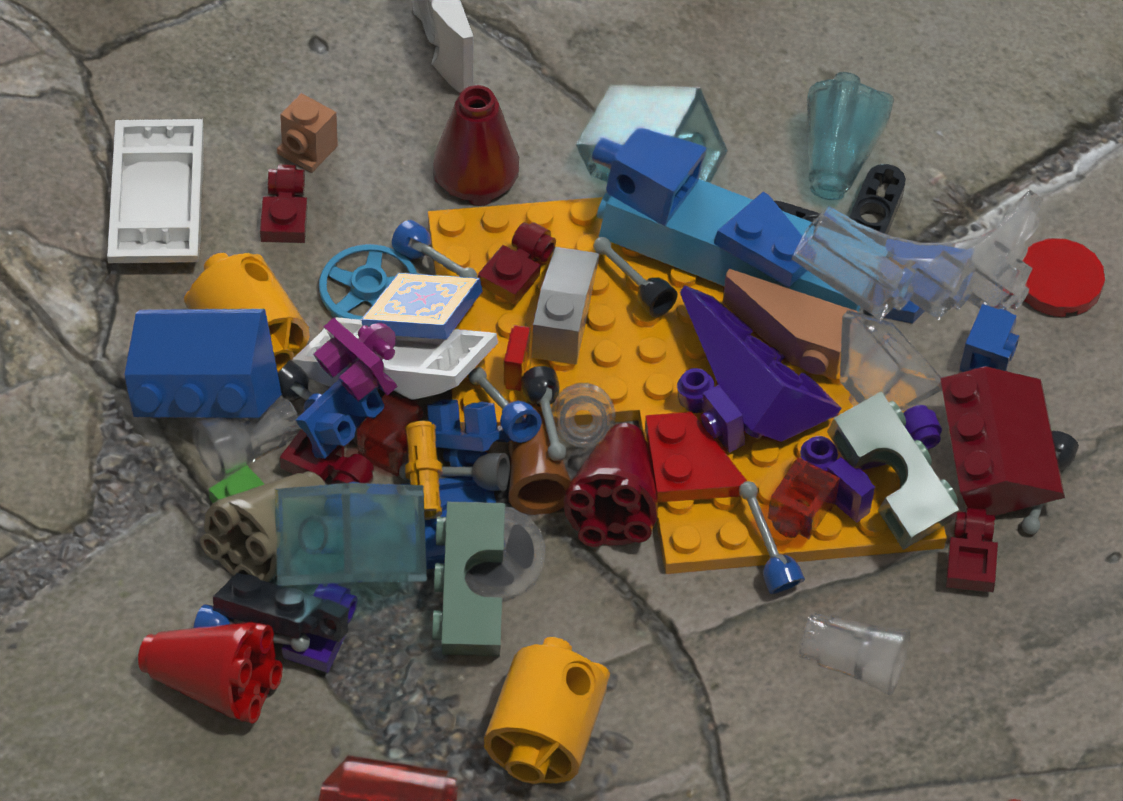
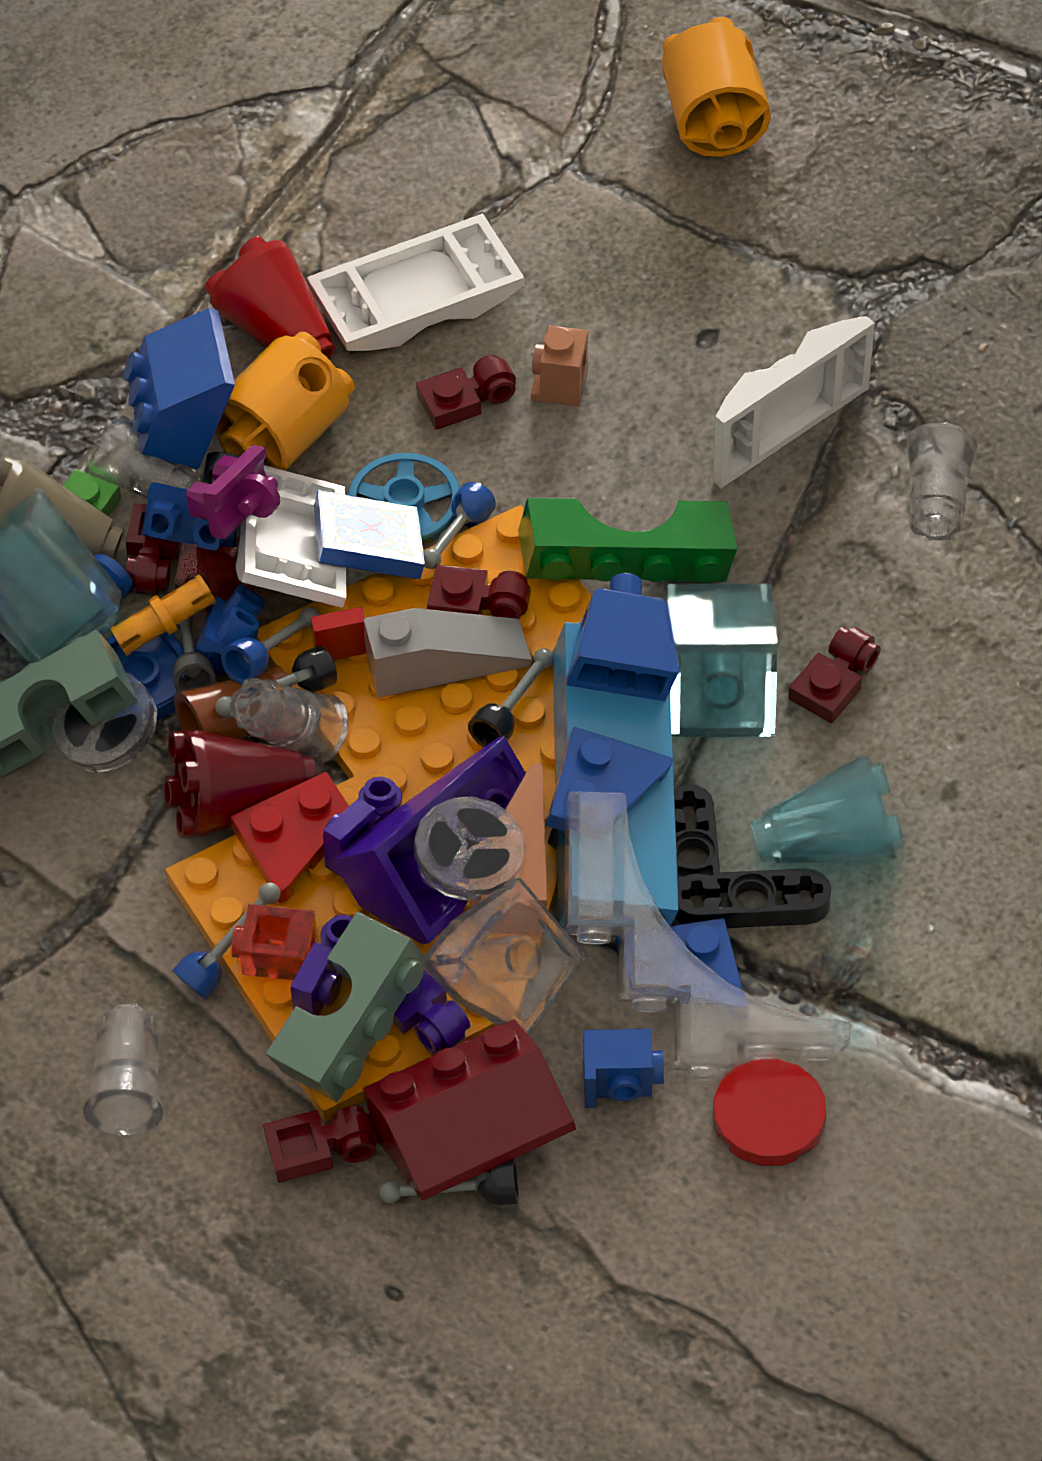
camera: 70 degrees right, 0 degrees up
(121, 282) = (268, 295): none -> red cone
(476, 149) = (616, 485): dark red cone -> none
(506, 183) = (568, 543): none -> green arch
(684, 72) = (830, 685): none -> dark red plate
(798, 334) = (469, 847): none -> clear tile

